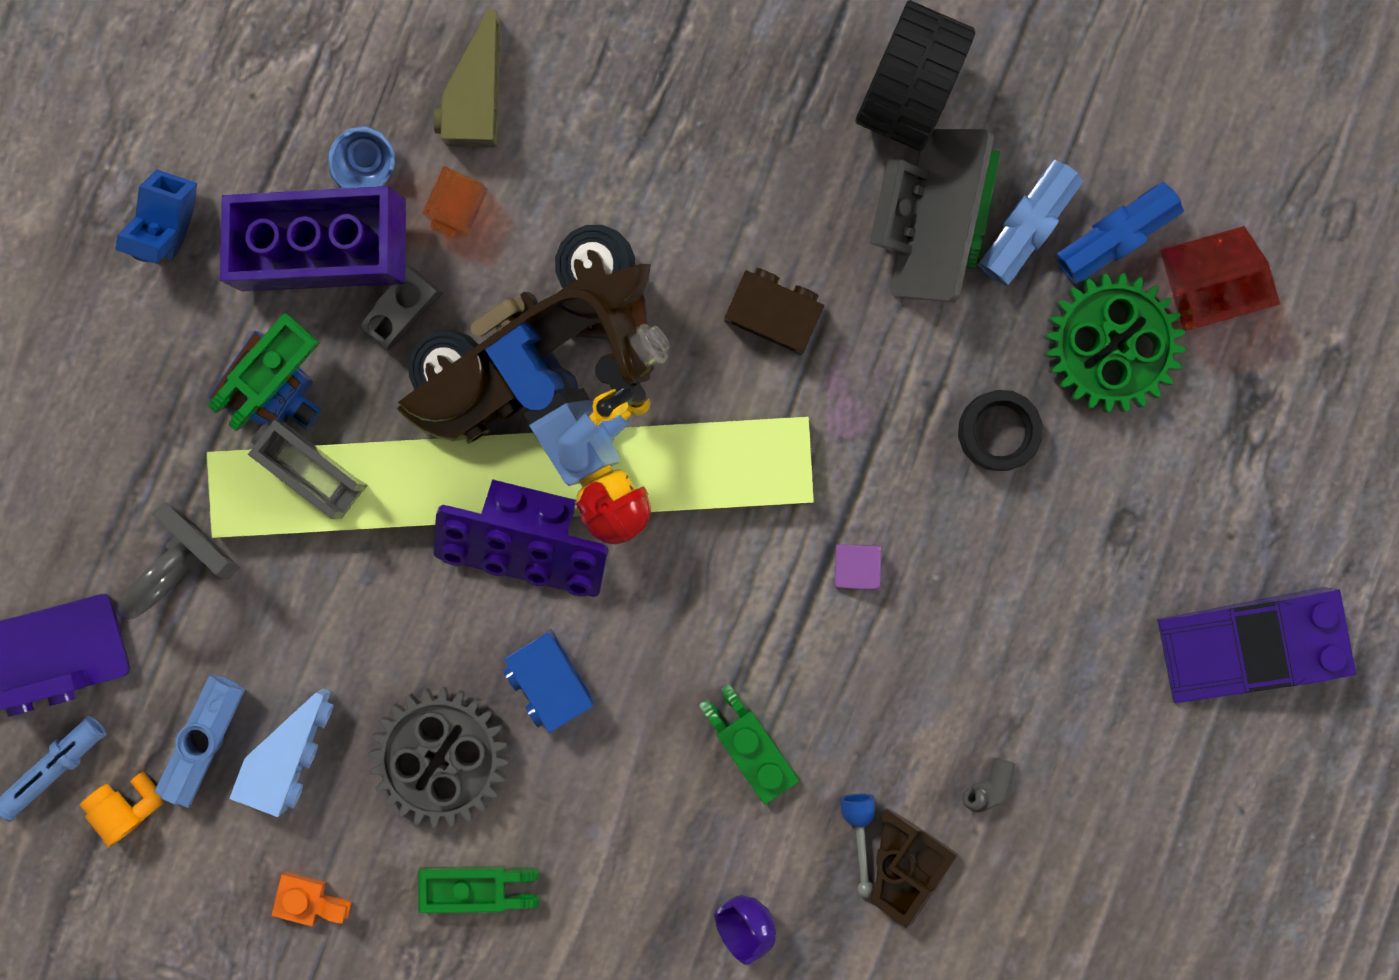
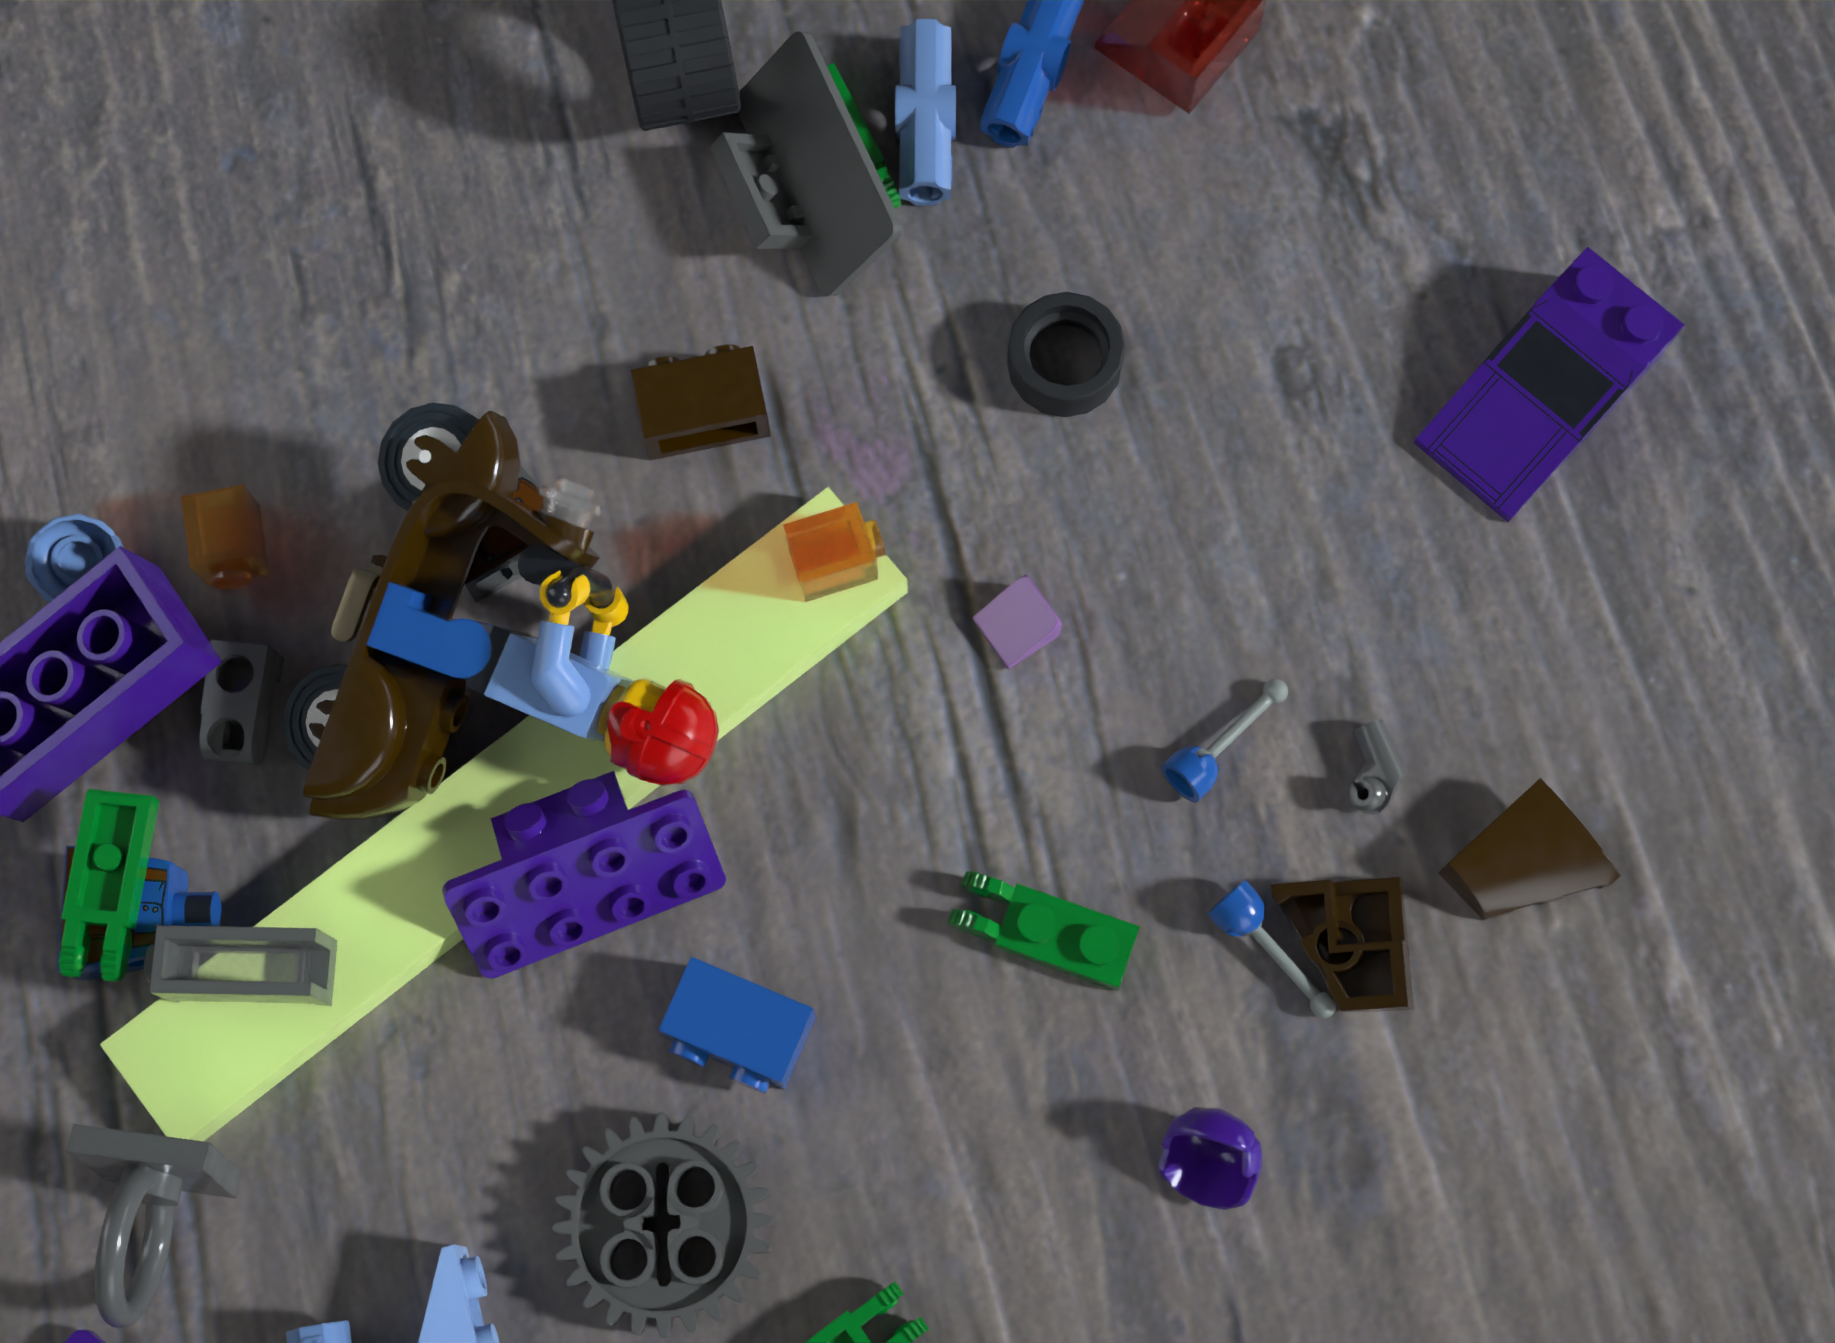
camera: 35 degrees left, 15 degrees down
(472, 93) = (162, 402): olive slope -> none
(783, 463) = (834, 550): none -> clear orange brick
(893, 717) = (1194, 769): none -> hinge
(1033, 892) = (1529, 857): none -> dark brown slope
(1091, 313) = (1174, 185): green gear -> none

